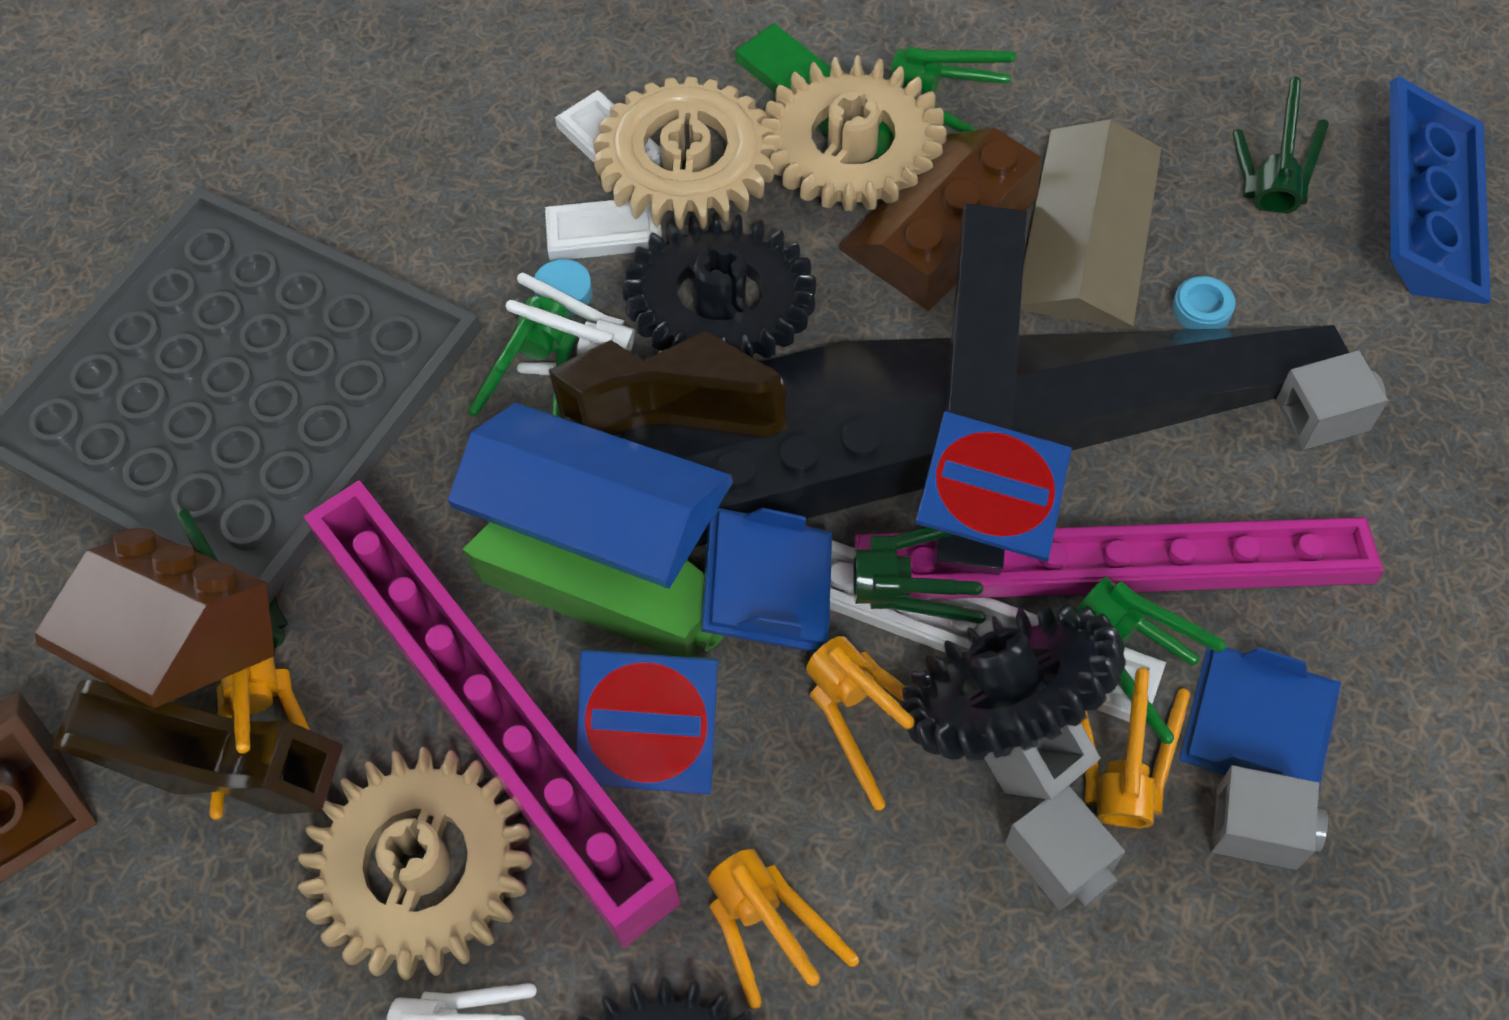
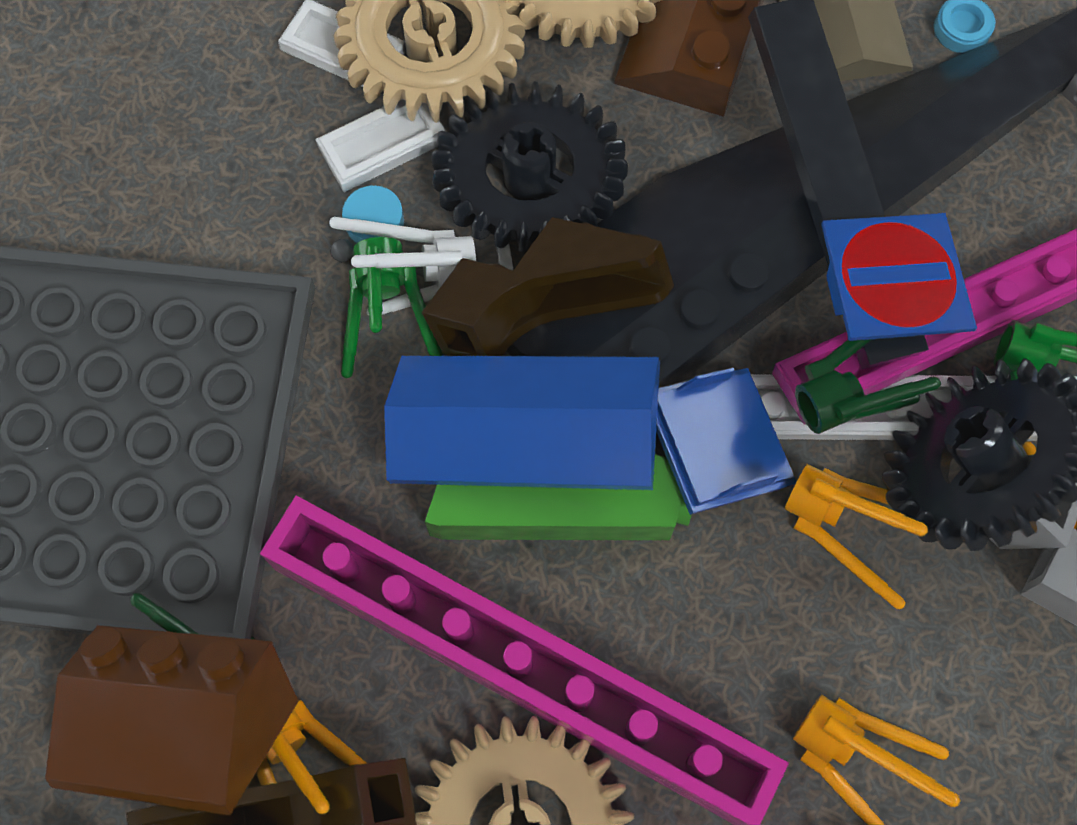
camera: 25 degrees left, 10 degrees up
(647, 720) = (672, 614): piece -> none

